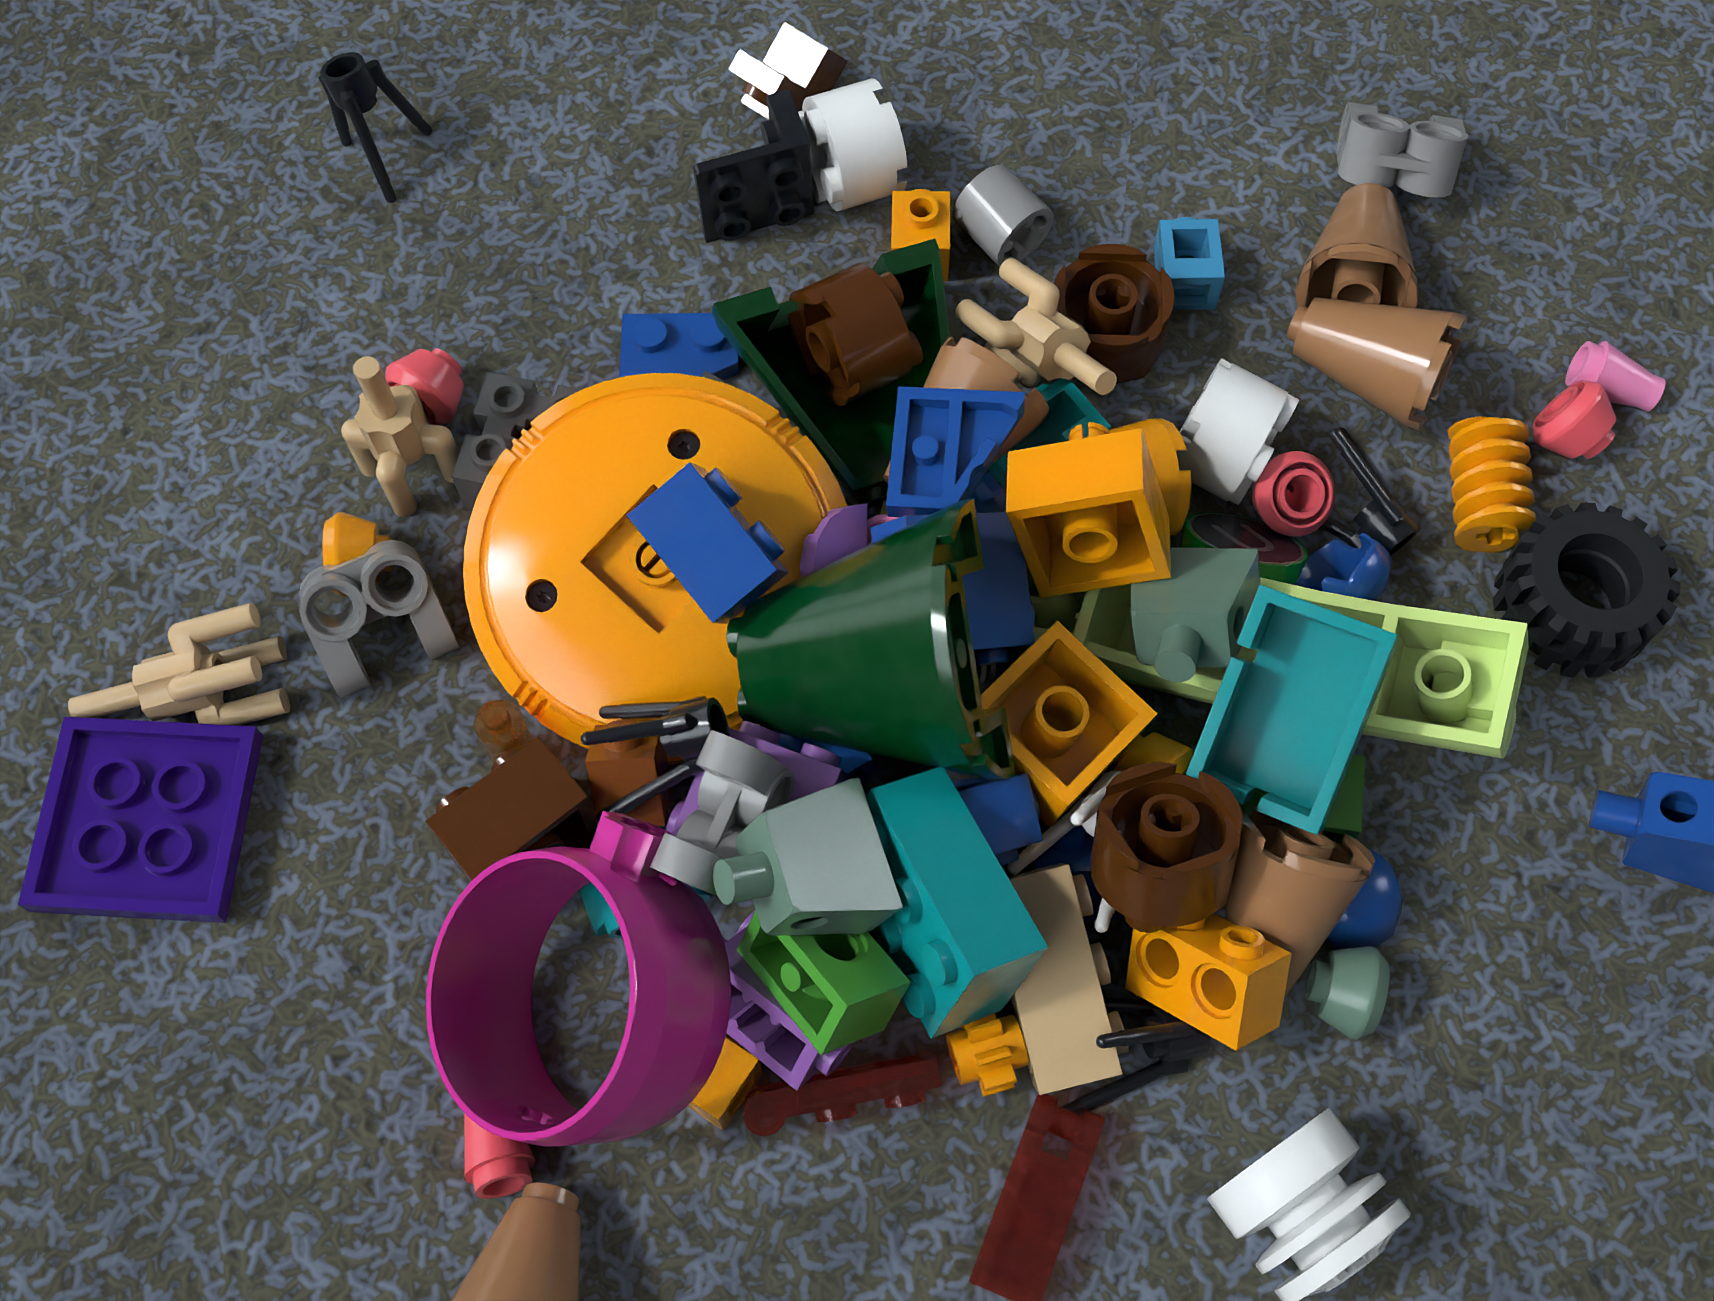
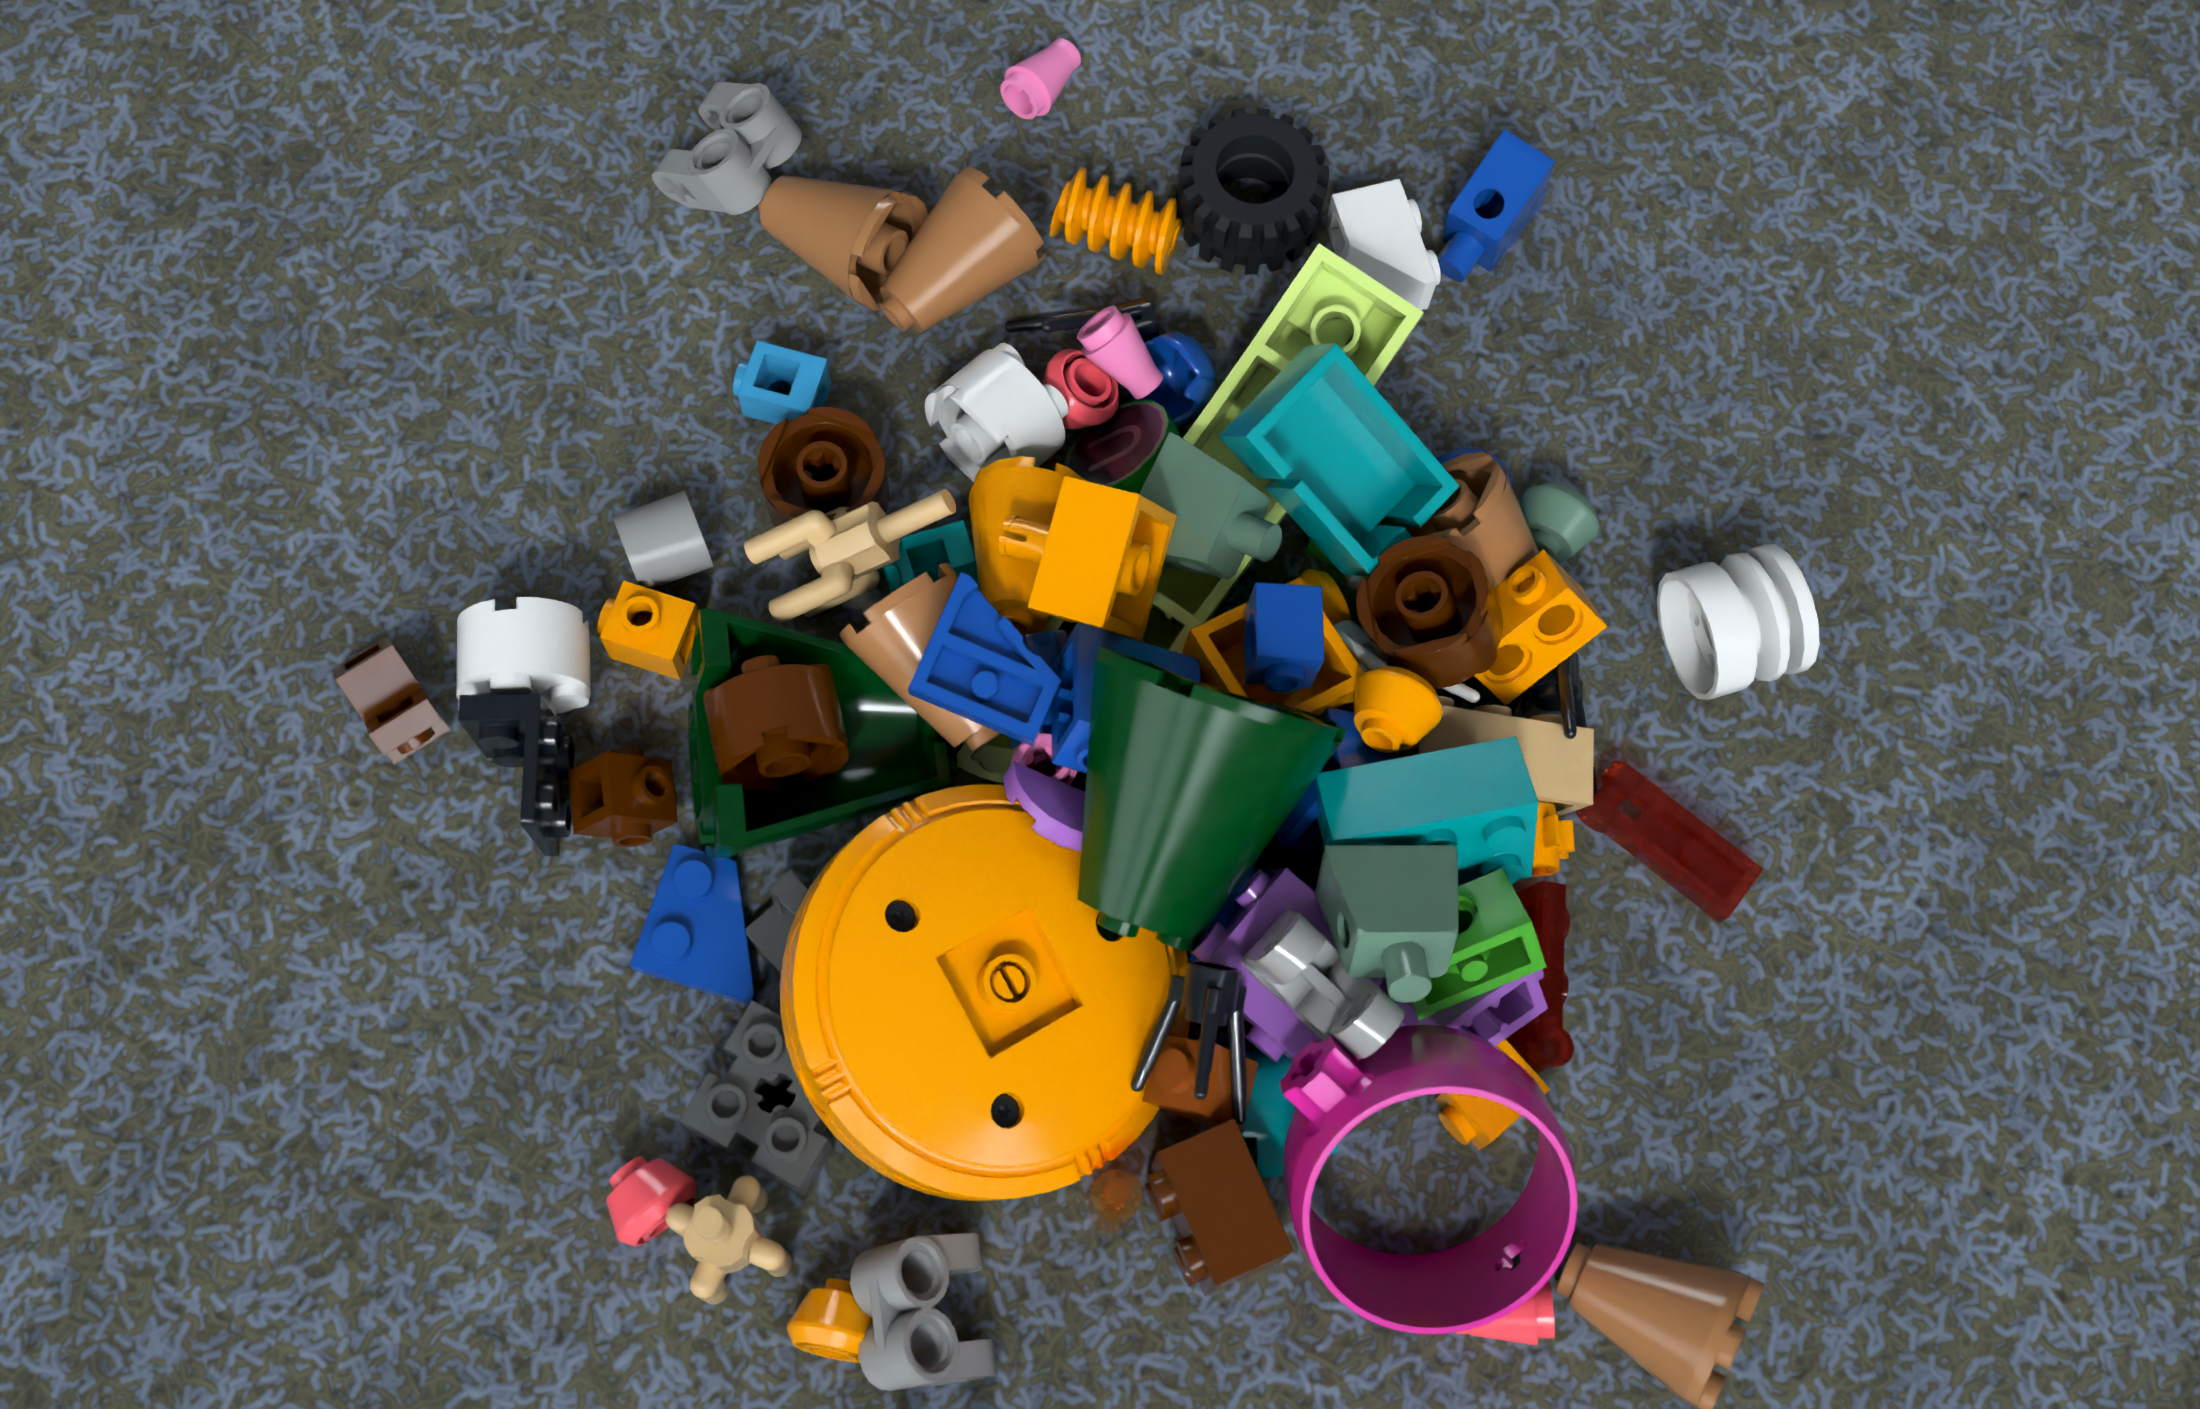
camera: 80 degrees left, 5 degrees up
(353, 89) = (232, 1187): black plant -> none
(710, 542) = (1035, 915): blue brick -> none
(762, 255) = (623, 797): none -> reddish brown brick
(1040, 828) = (1394, 708): none -> light orange cone
(1073, 695) = (1283, 636): none -> blue brick
(1341, 509) = (1119, 350): none -> bright pink cone
(1576, 421) = (1078, 127): coral cone -> none
(1593, 729) = (1381, 237): none -> white slope

